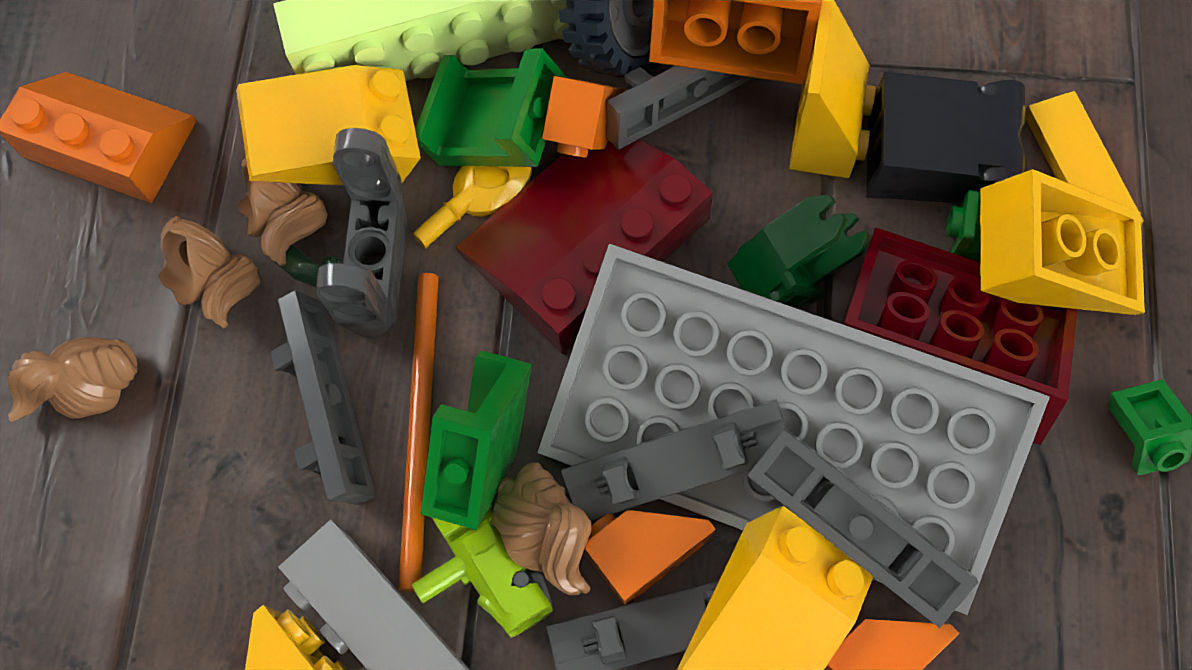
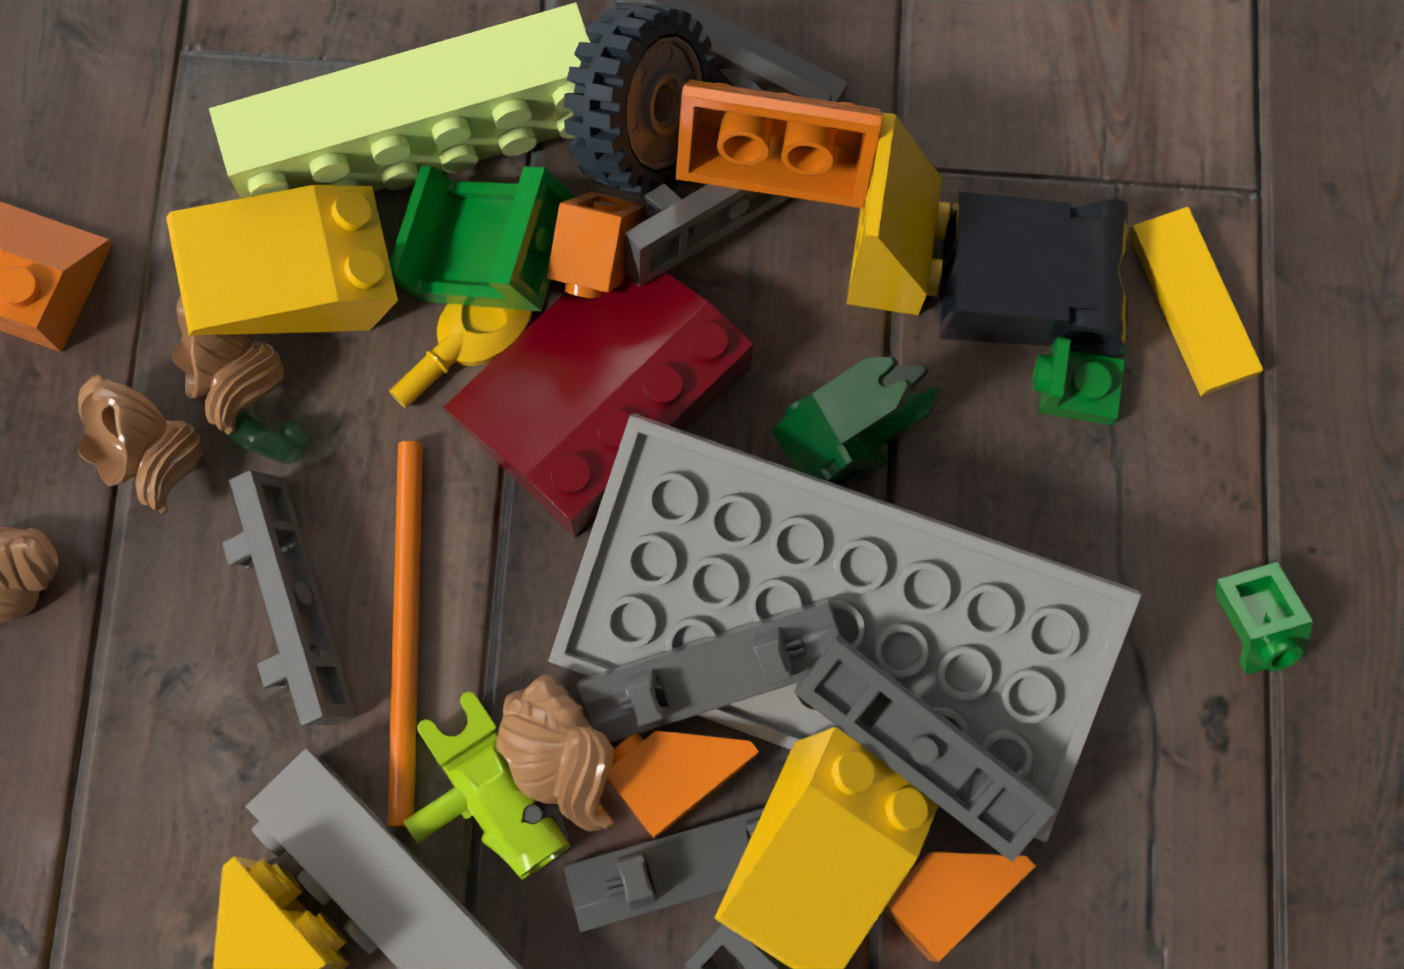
camera: 10 degrees left, 5 degrees up
(355, 293) = (337, 471): dark grey connector -> none
(478, 445) = (477, 664): green panel -> none
(937, 307) = (1051, 490): dark red slope -> none
(1060, 246) = (1163, 406): yellow slope -> none

